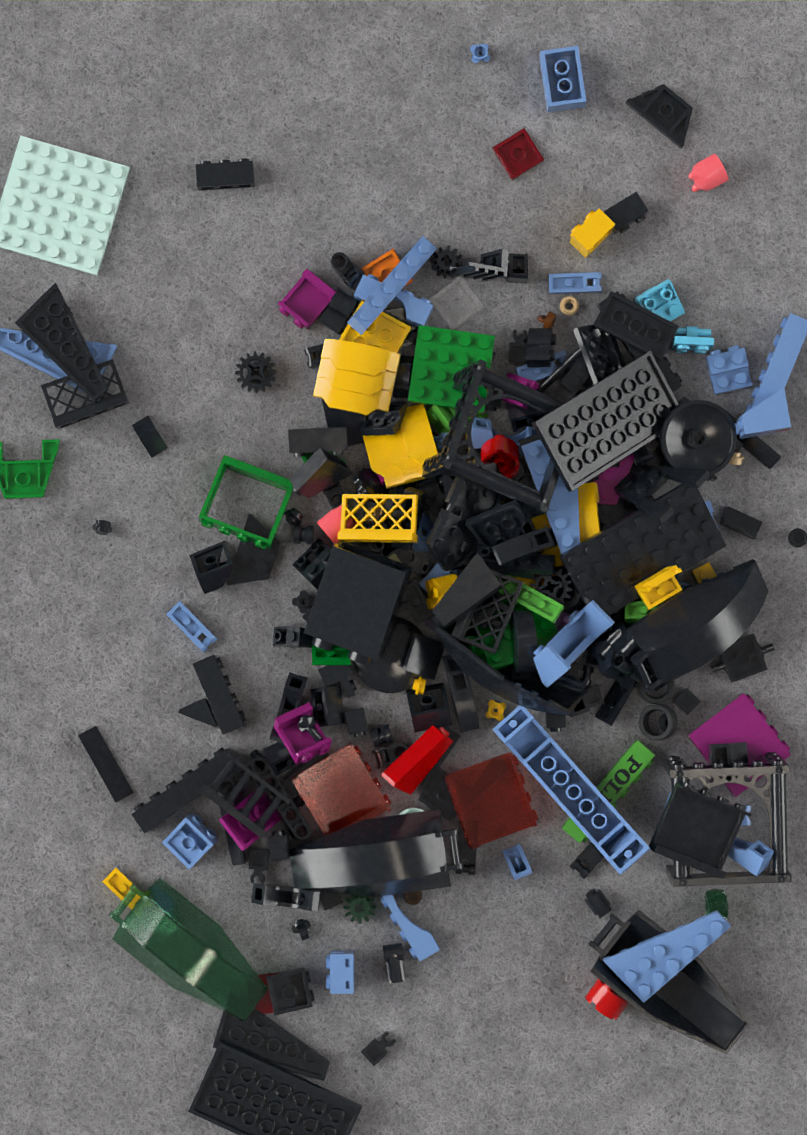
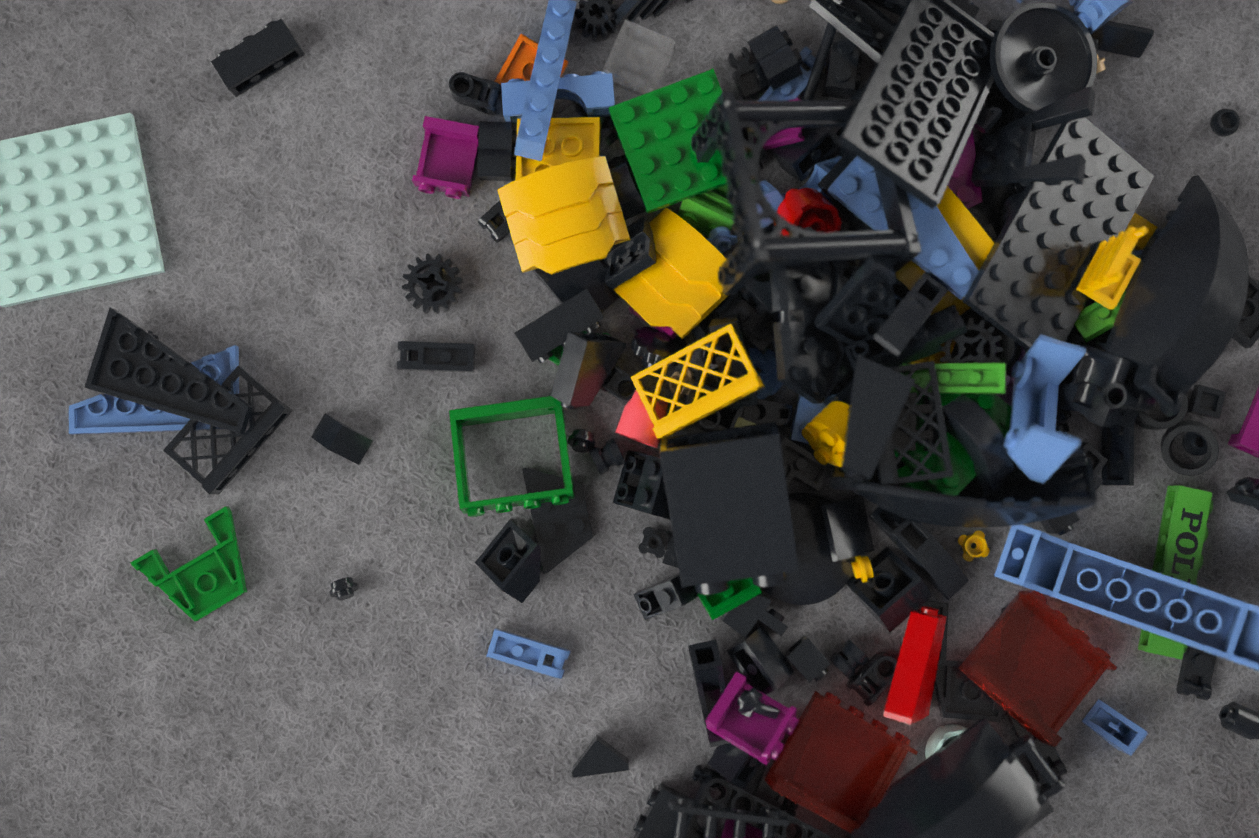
camera: 30 degrees left, 0 degrees up
(219, 695) = (612, 723): black brick -> none
(234, 418) = (437, 356): none -> black plate
(547, 320) = (766, 19): reddish brown tile -> none
(741, 523) = (1147, 141): black panel -> none

